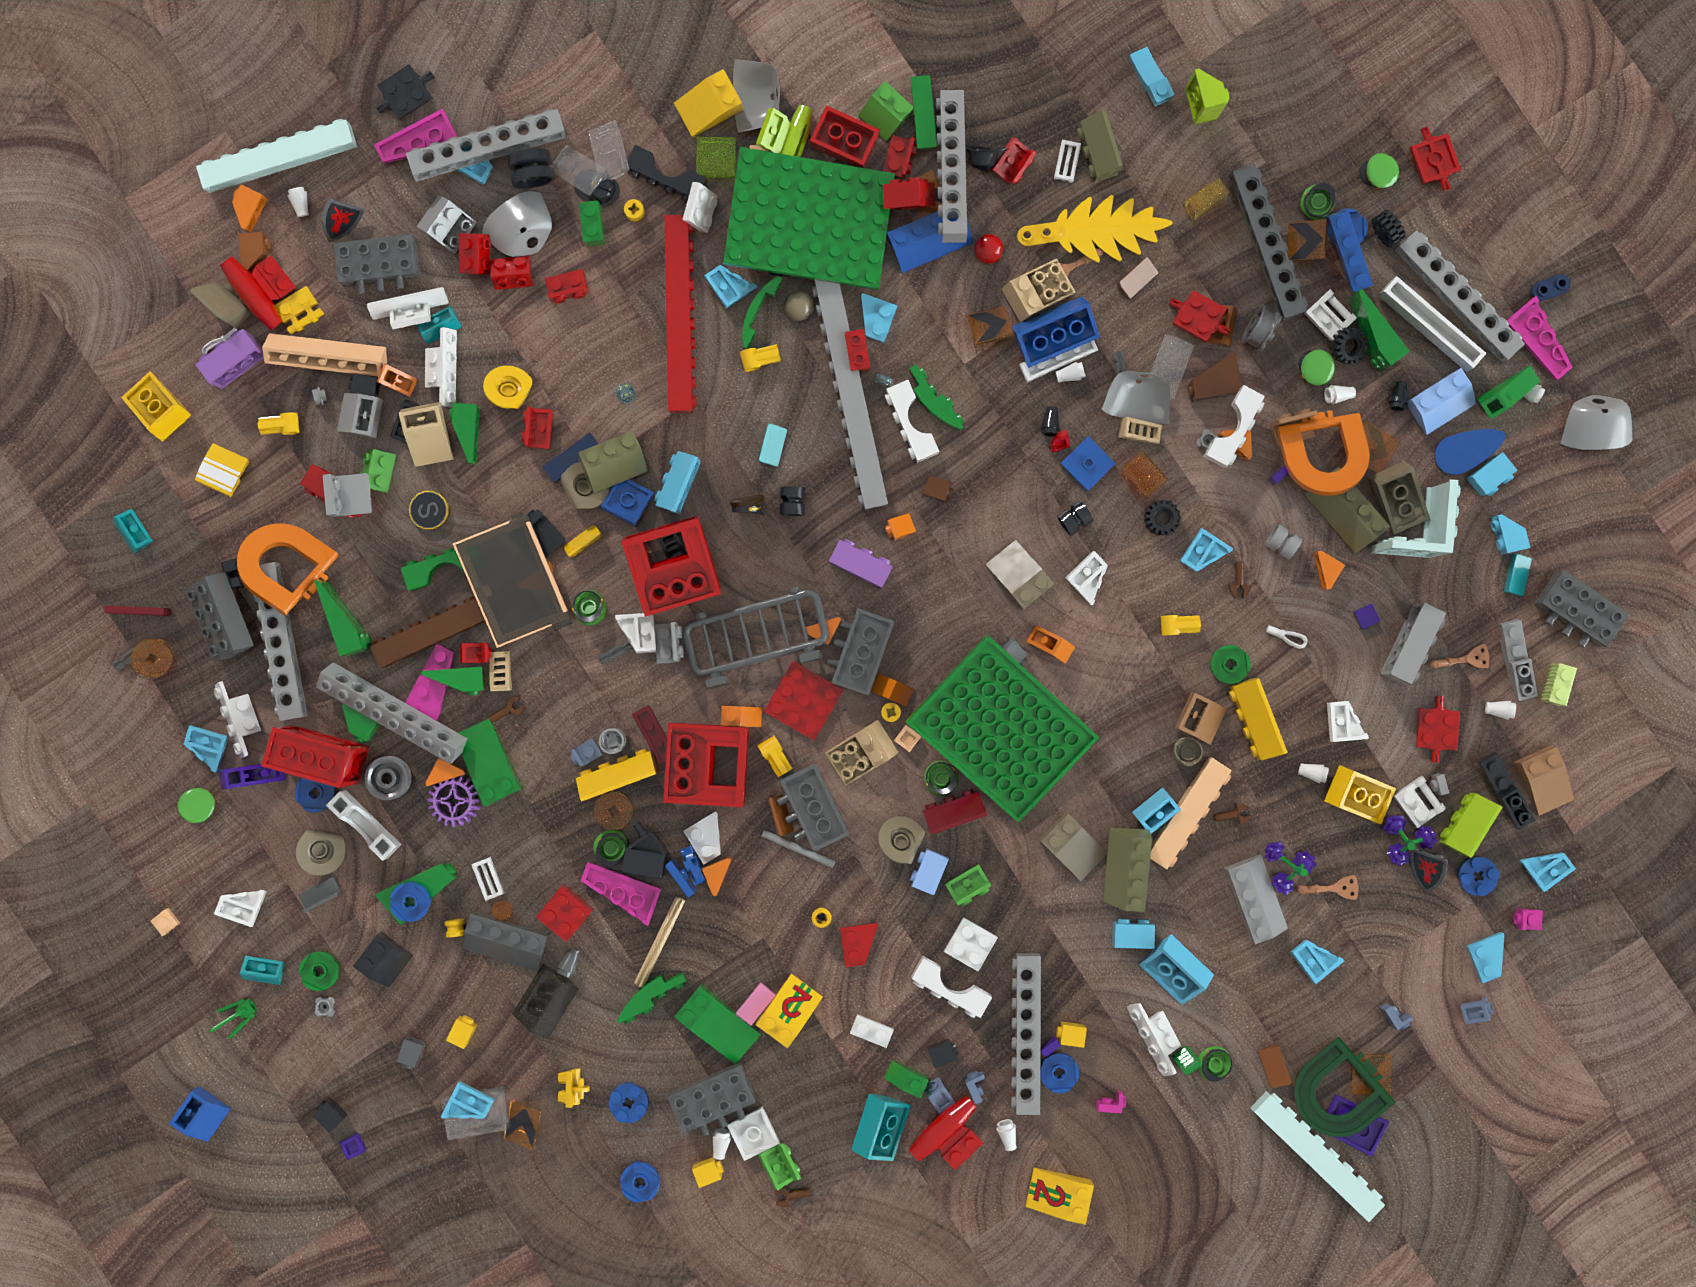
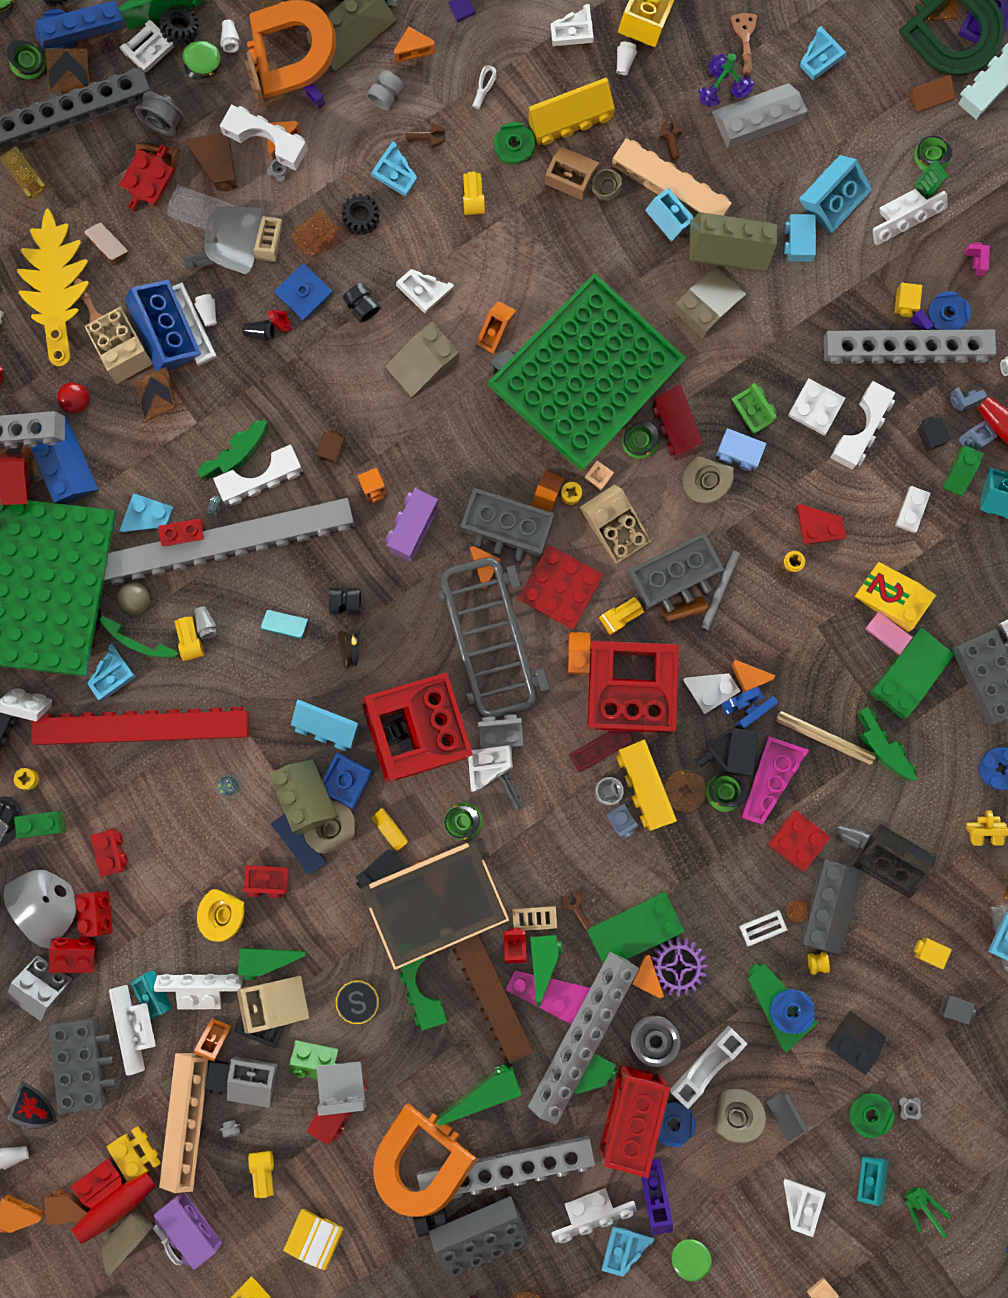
camera: 90 degrees left, 5 degrees down
(773, 372) = (205, 625): none -> light grey cone

